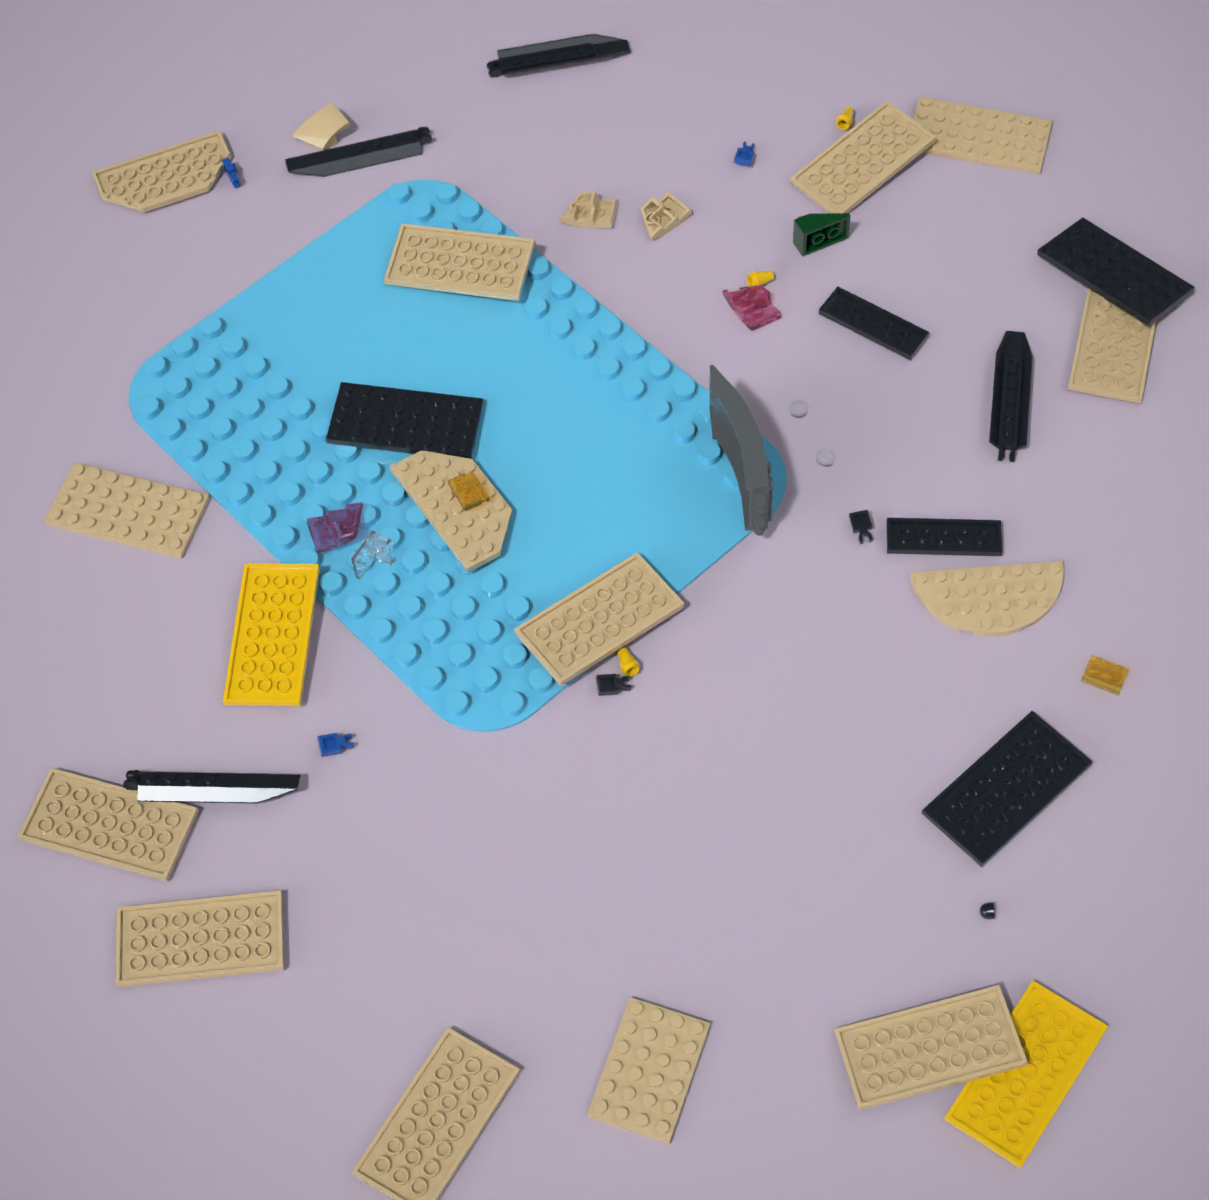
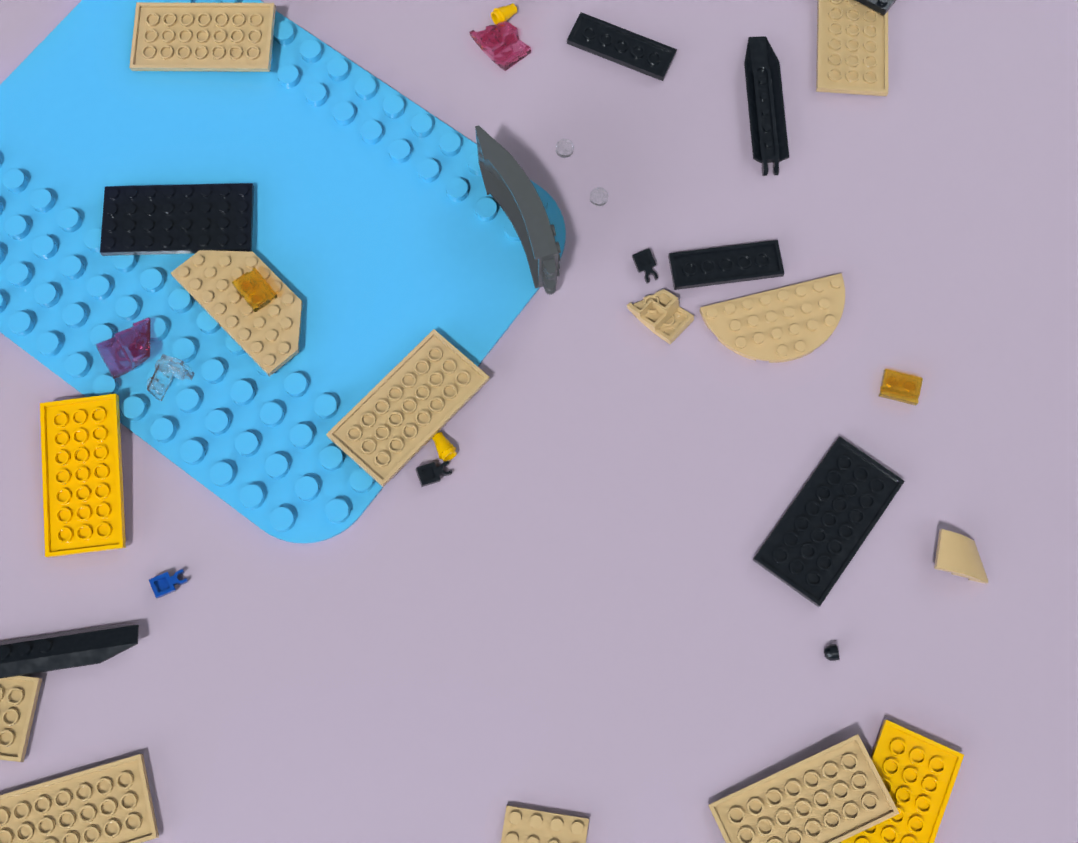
camera: 15 degrees left, 15 degrees up
(870, 574) = (662, 315): none -> tan slope
(1138, 840) = (959, 556): none -> tan slope

